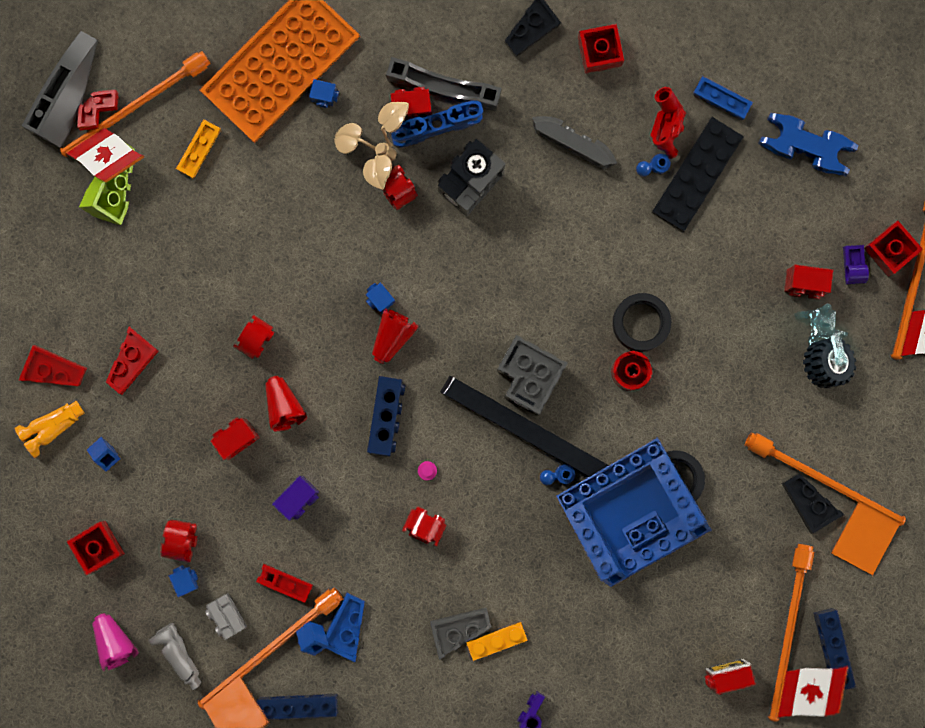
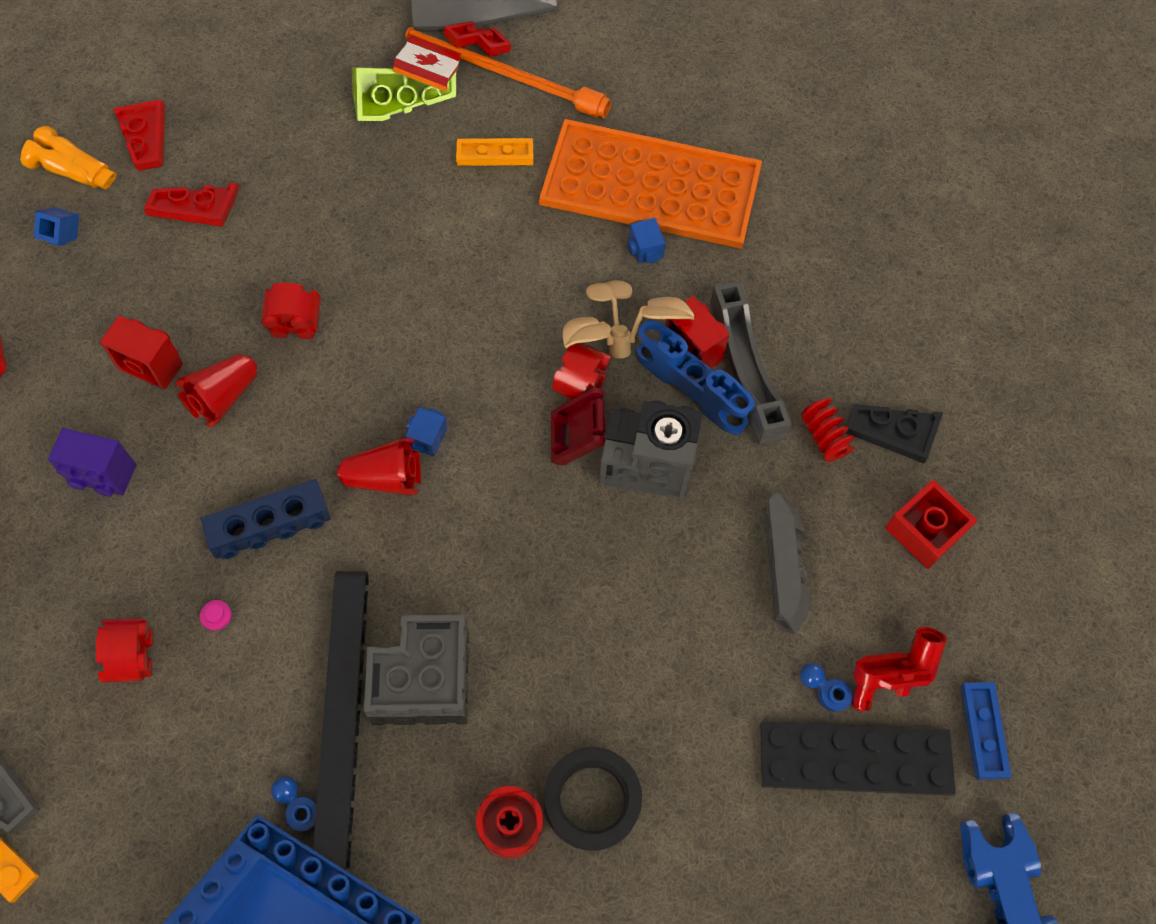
camera: 60 degrees right, 20 degrees down
(433, 206) = (585, 427): none -> dark red container
(511, 66) = (826, 430): none -> red piece

